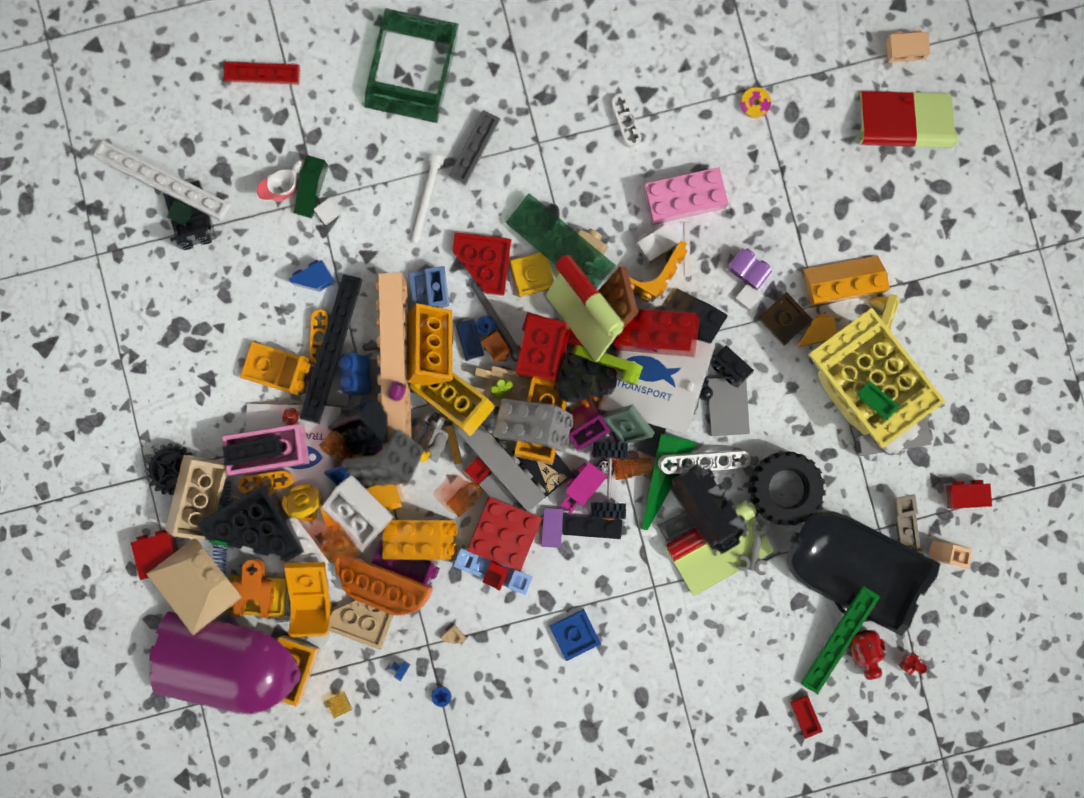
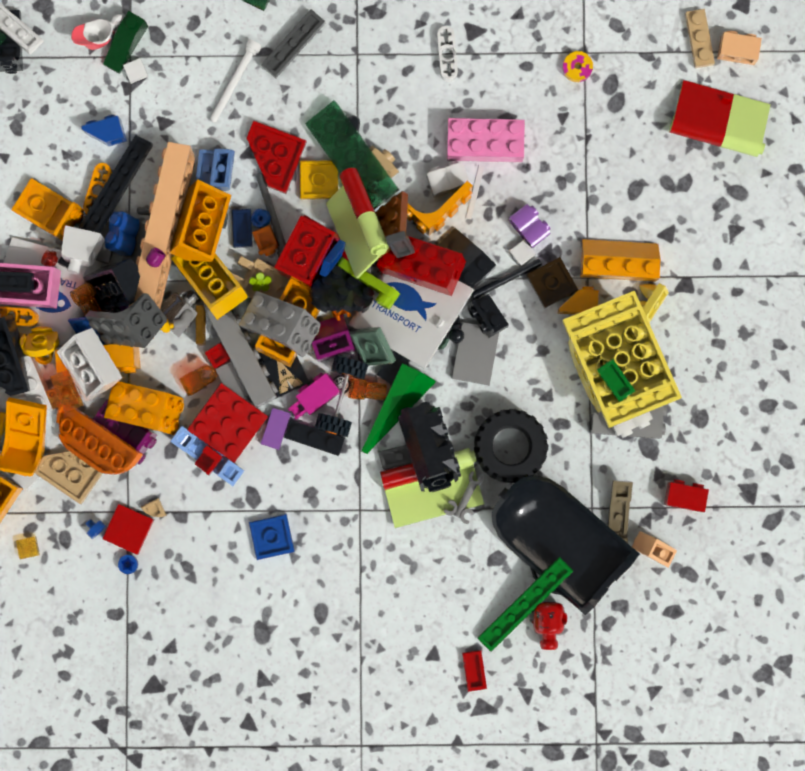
camera: 10 degrees right, 0 degrees up
(319, 399) = (80, 247): none -> white torso
(433, 662) = (128, 529): none -> red tile
(568, 348) = (332, 258): none -> blue tile
(634, 319) = (400, 244): none -> dark grey tile
(713, 461) = (446, 405): white beam -> none
(742, 323) = (507, 278): none -> black bar
(866, 46) = (699, 38): none -> tan plate
(912, 662) = (589, 644): red plate -> none

